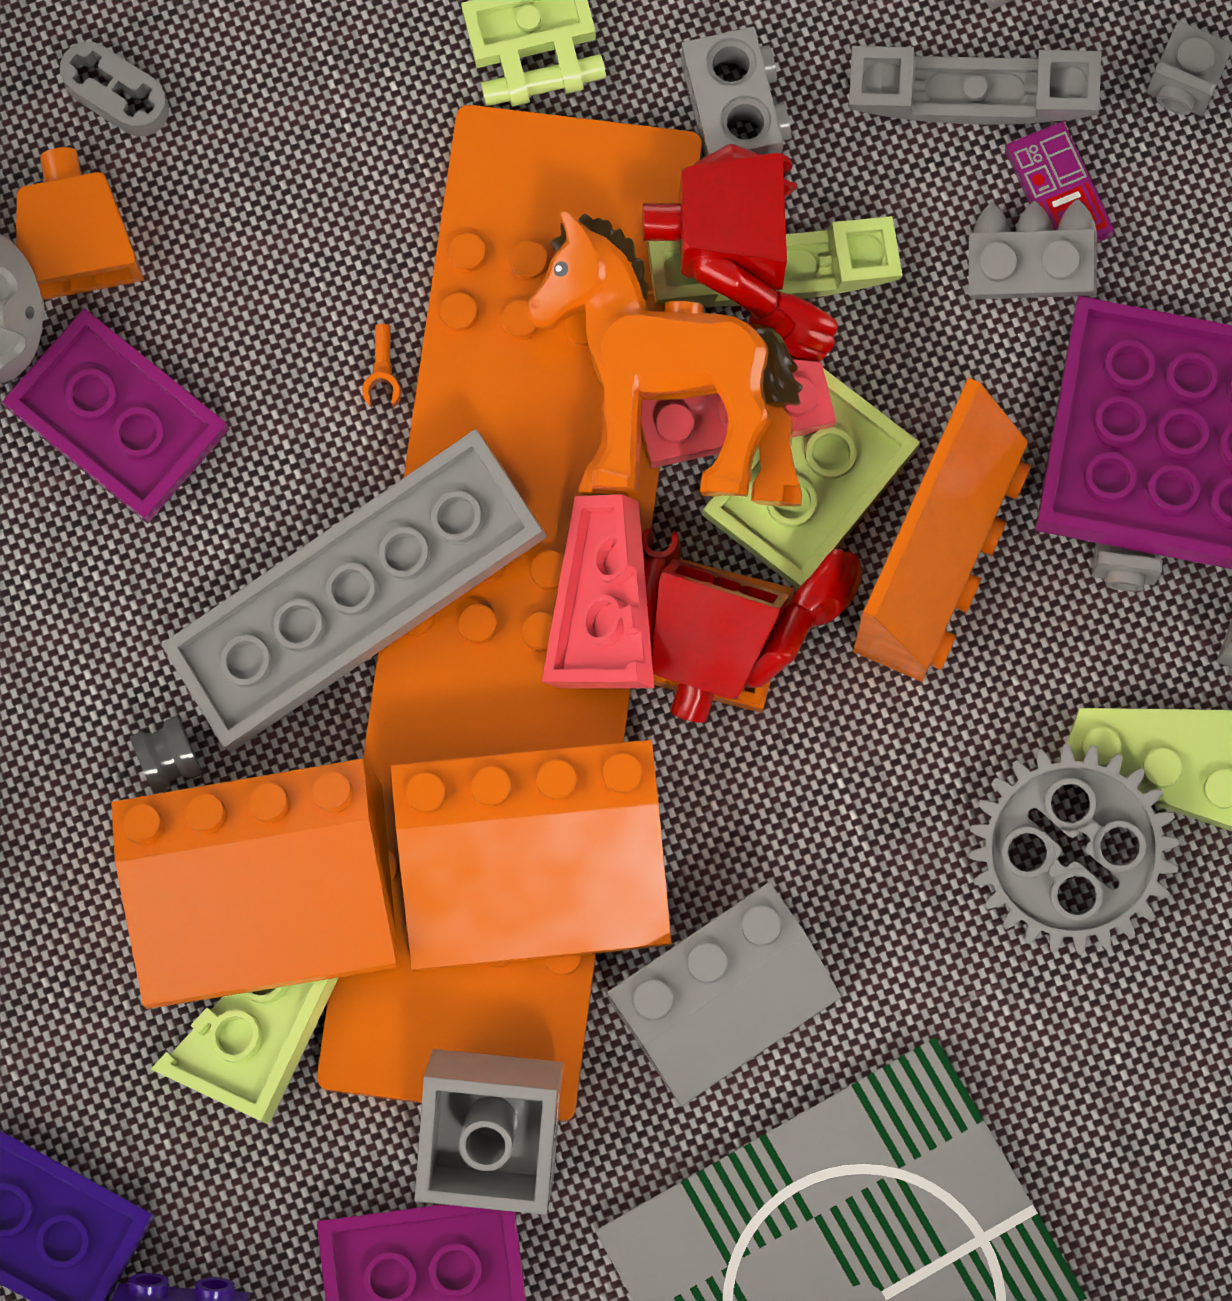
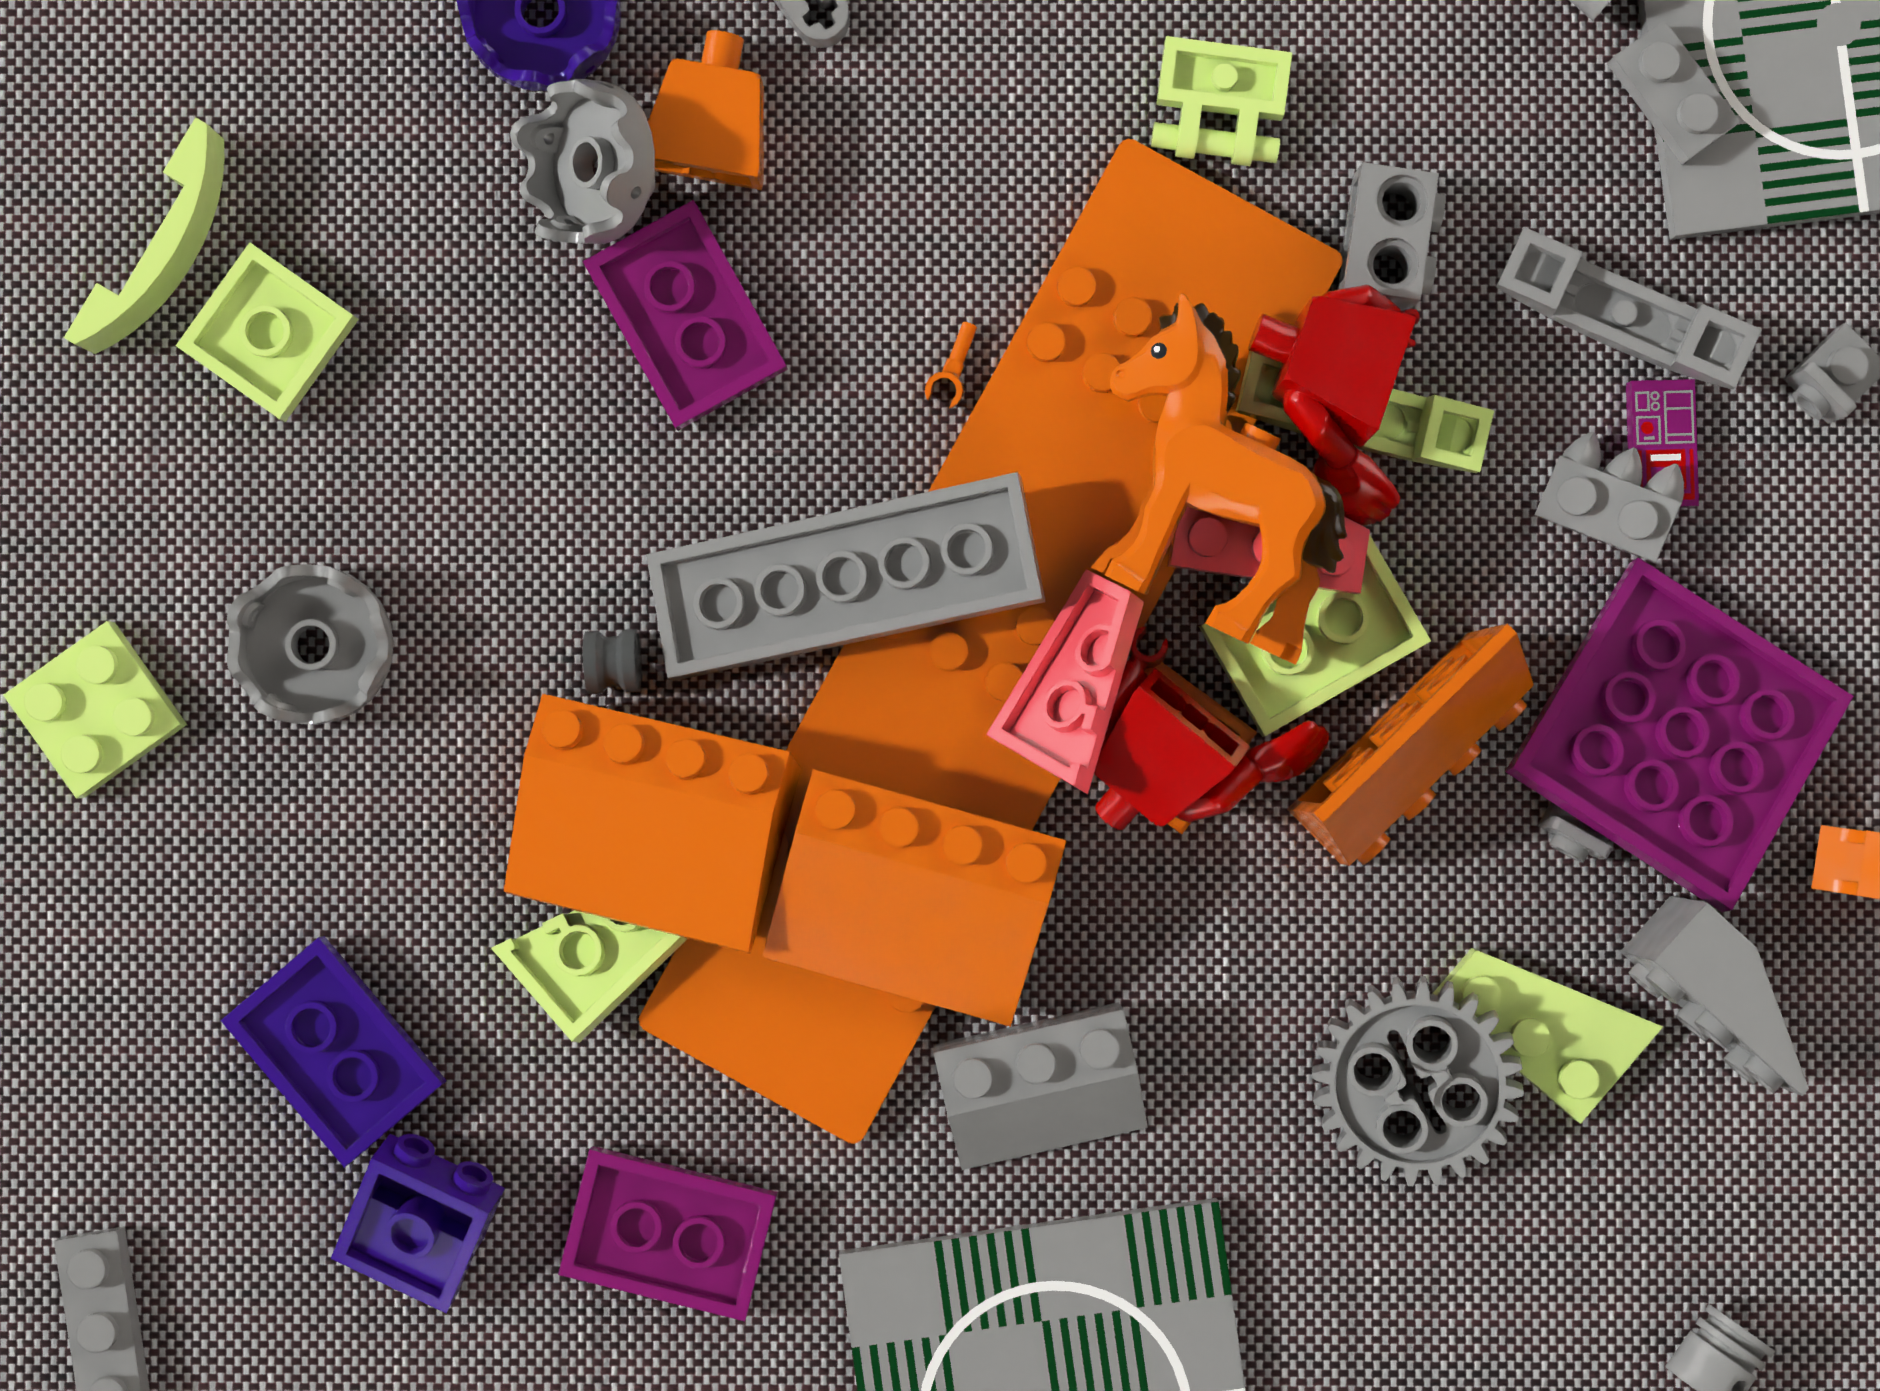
camera: 20 degrees right, 10 degrees up
(488, 1131) = (775, 1136): light grey brick -> none

